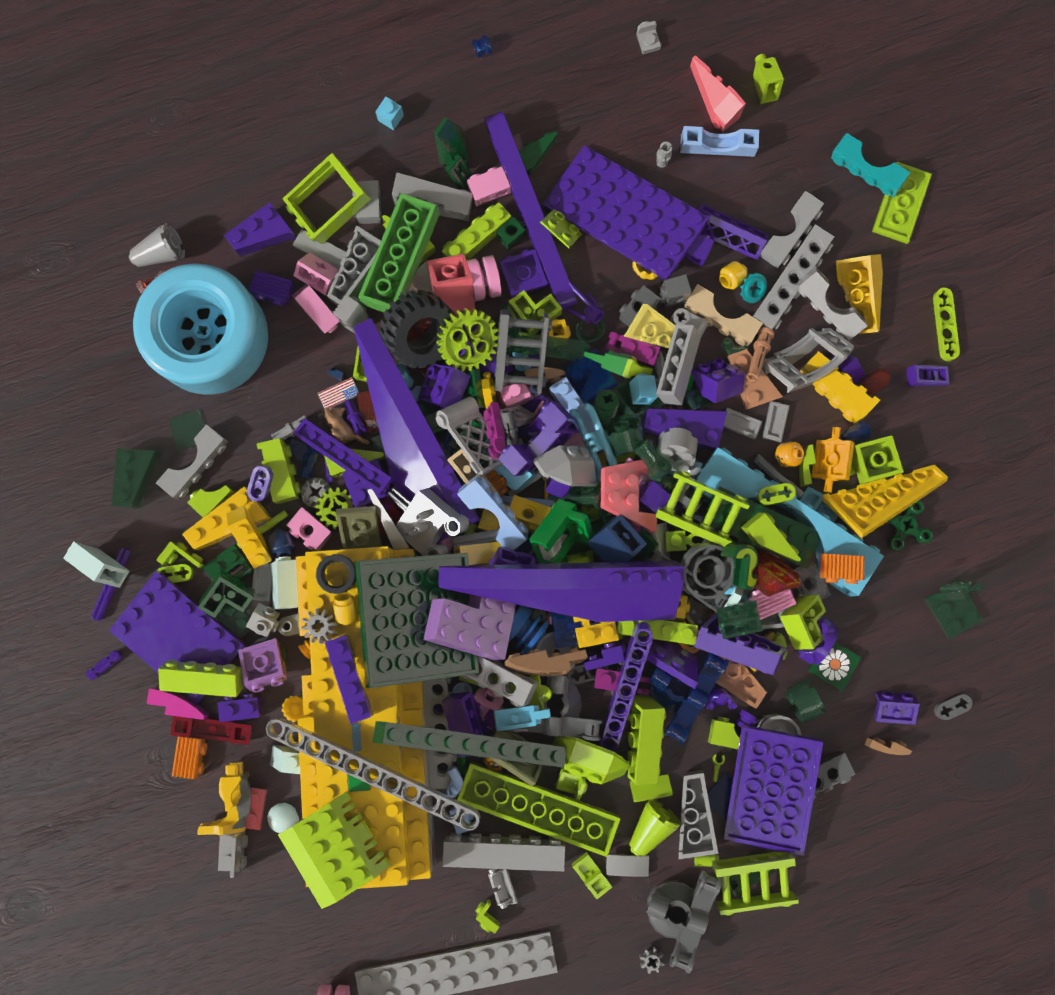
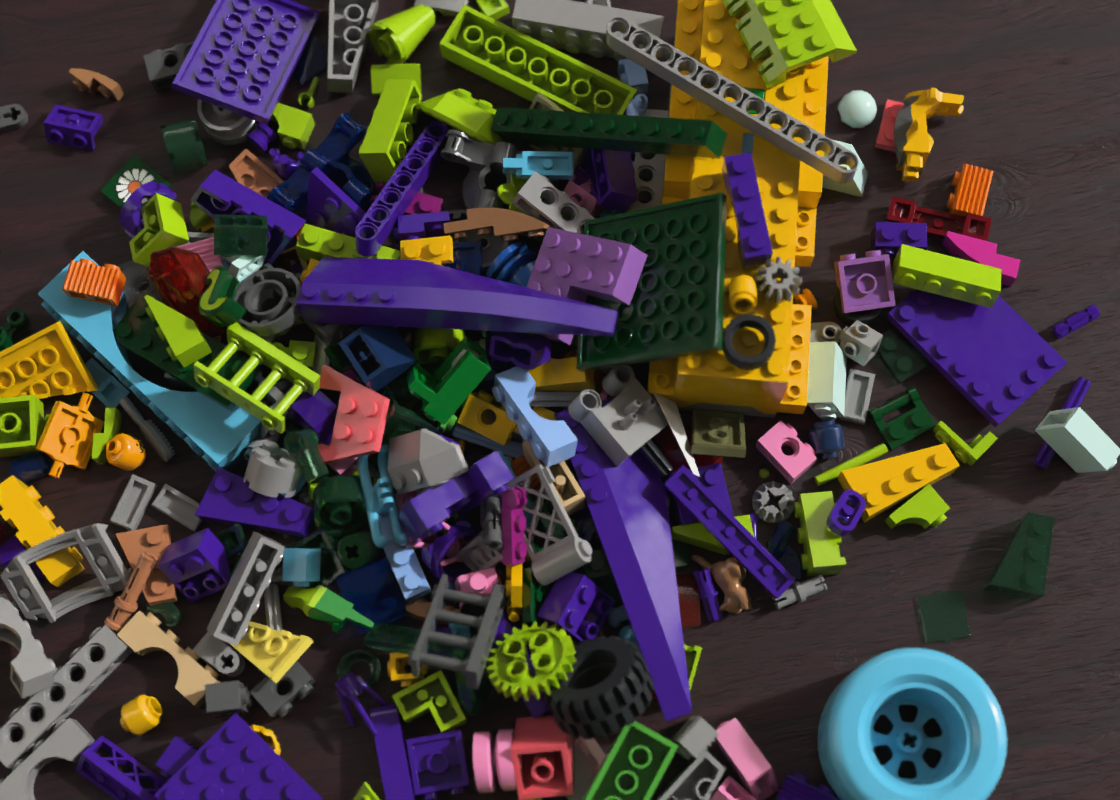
camera: 170 degrees left, 10 degrees down
(178, 568) = (970, 429): lime beam -> none
(208, 444) = (916, 588): light grey arch -> none
(226, 590) = (906, 382): dark green brick -> none
(232, 853) = (922, 72): light grey bracket -> none
(248, 537) = (868, 445): yellow brick -> none
(293, 708) = (829, 231): yellow piece -> none
(325, 511) = (758, 472): lime gear -> none
(338, 393) = (726, 633): tile -> none
(339, 375) = (726, 661): dark blue tile -> none
(571, 784) = (497, 97): lime bracket -> none
(640, 350) = (297, 623): magenta plate -> none
(756, 294) = (121, 685): teal gear -> none
(776, 498) = (155, 383): lime beam -> none

